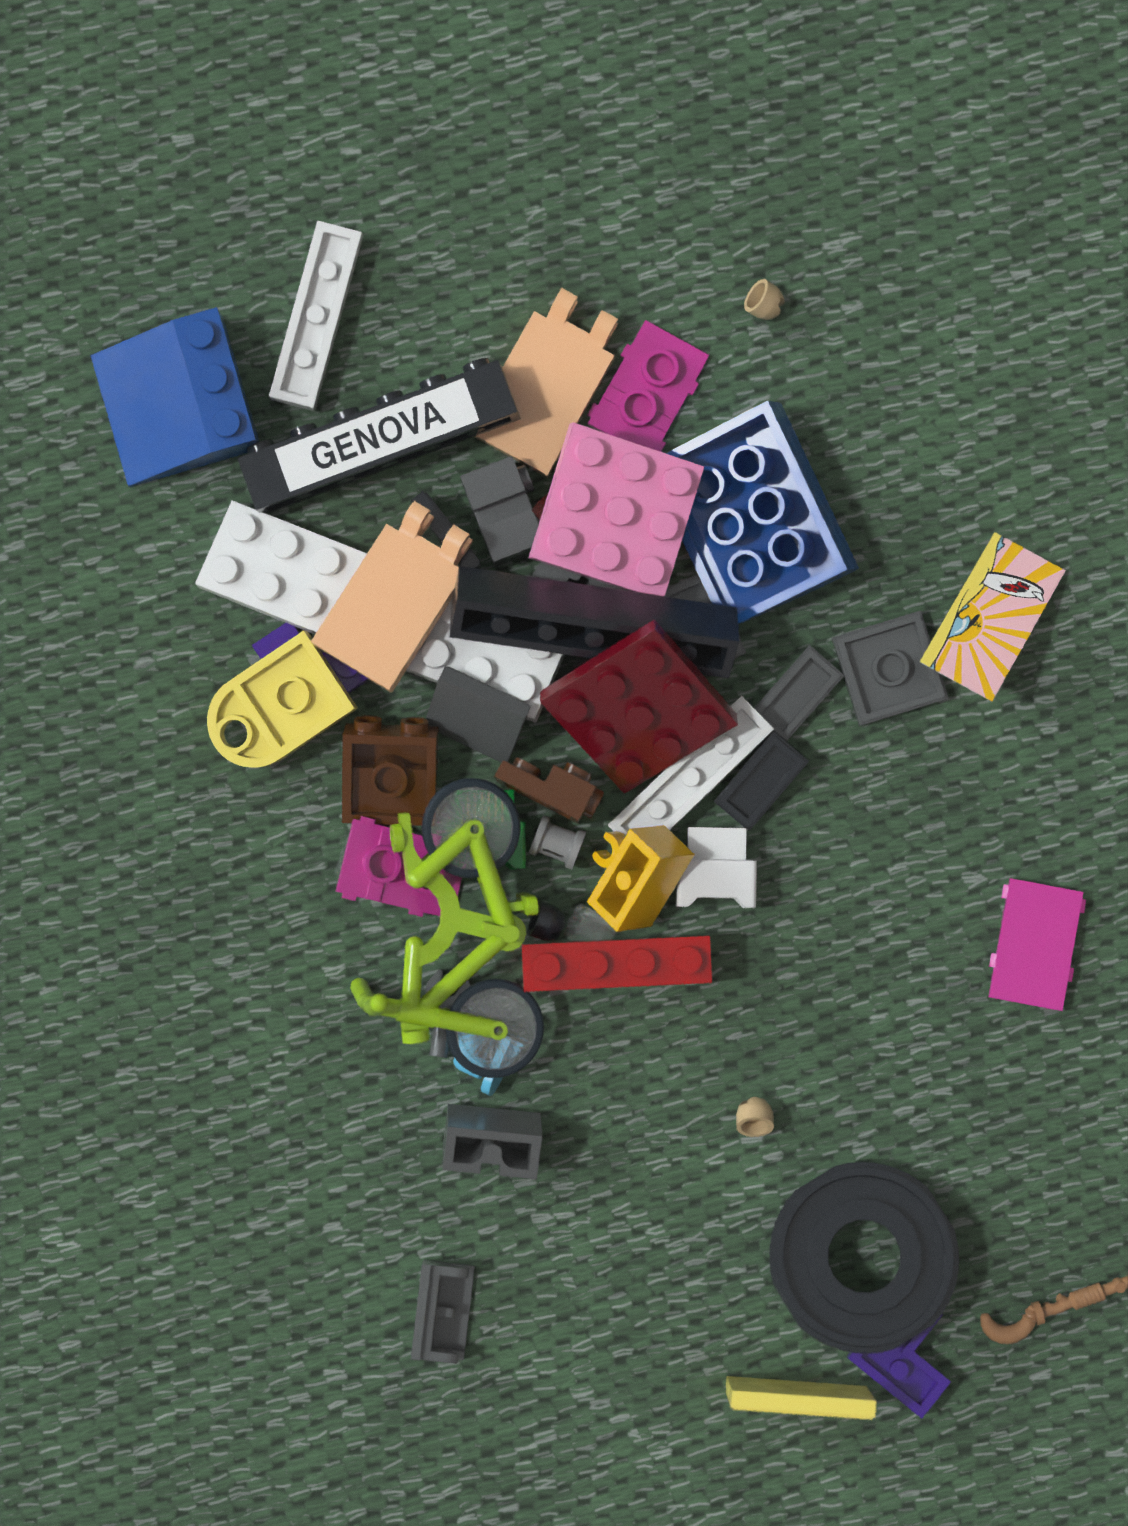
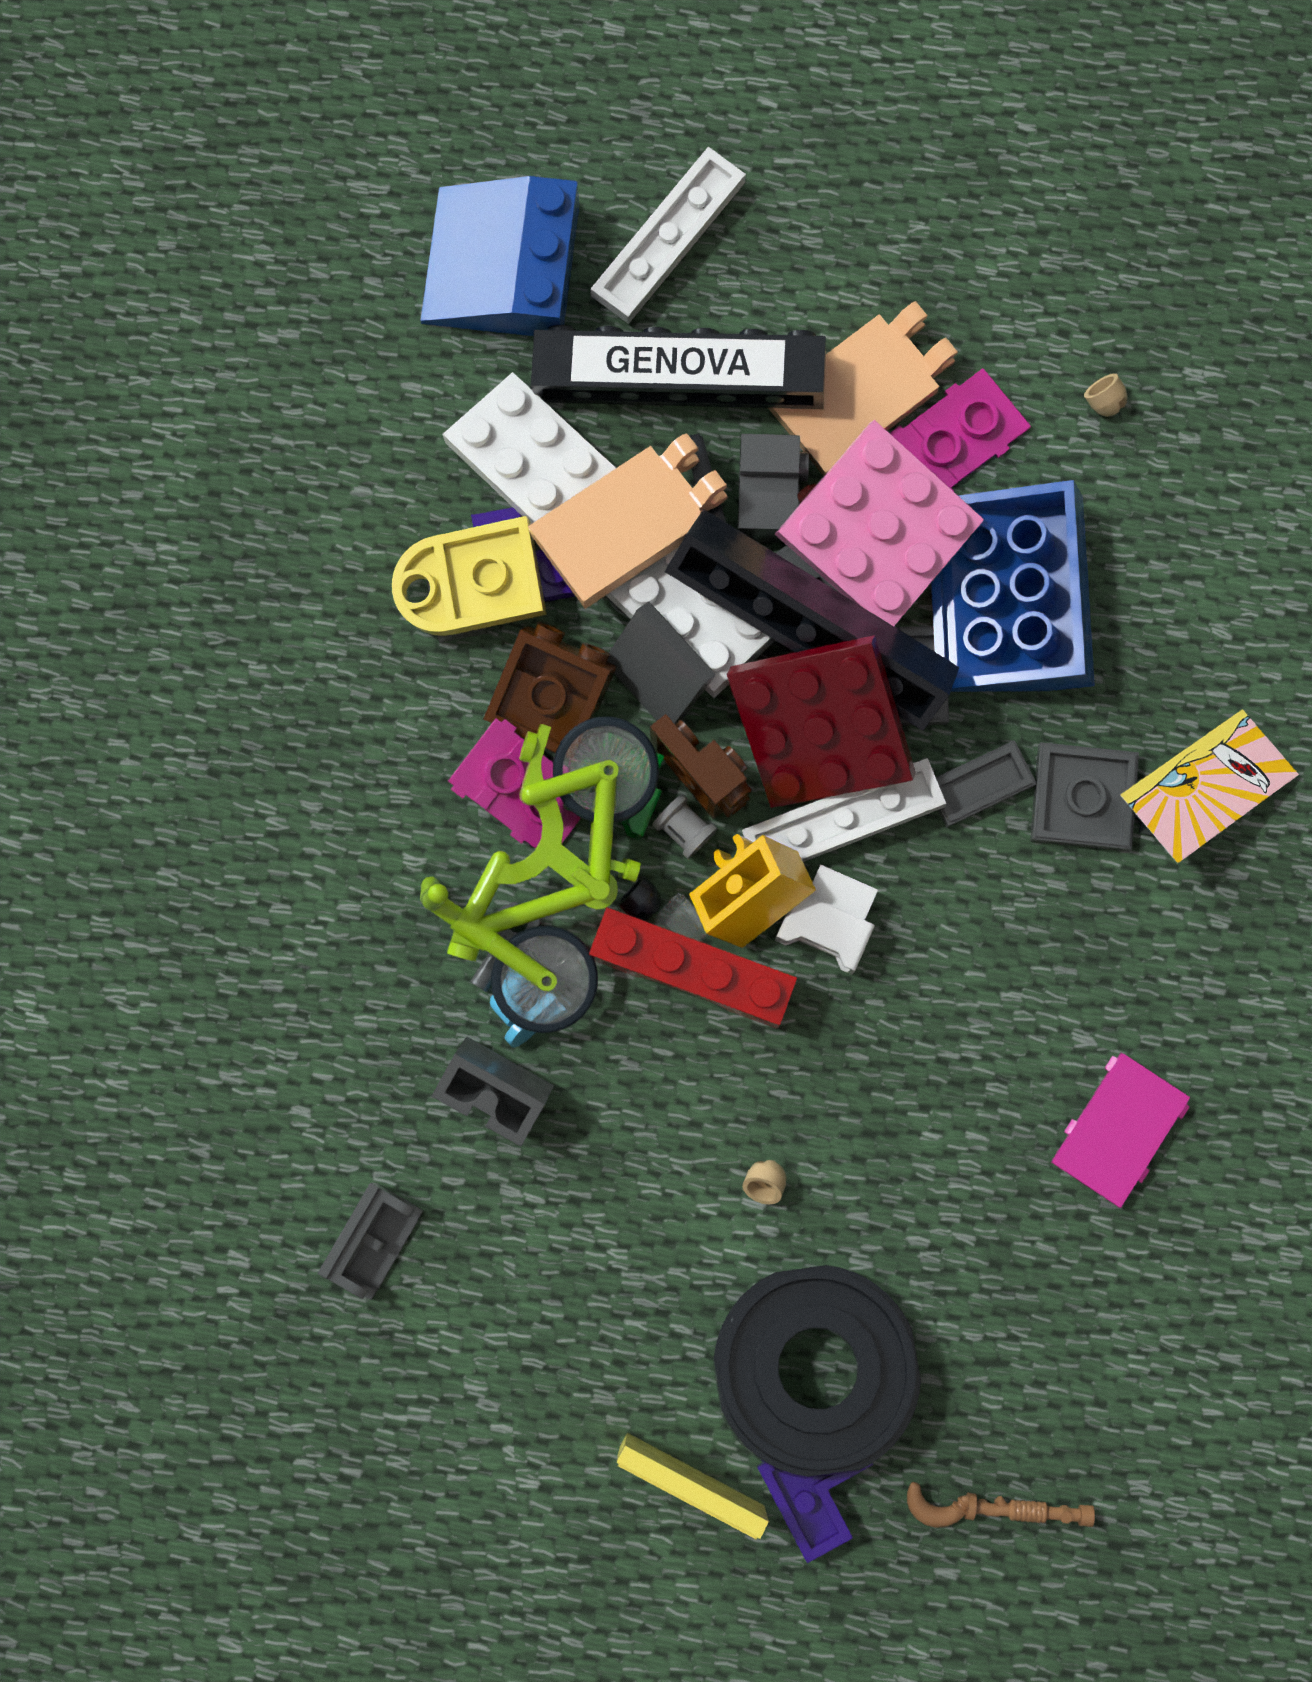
camera: 25 degrees right, 5 degrees down
(761, 780) = (912, 851): black tile -> none

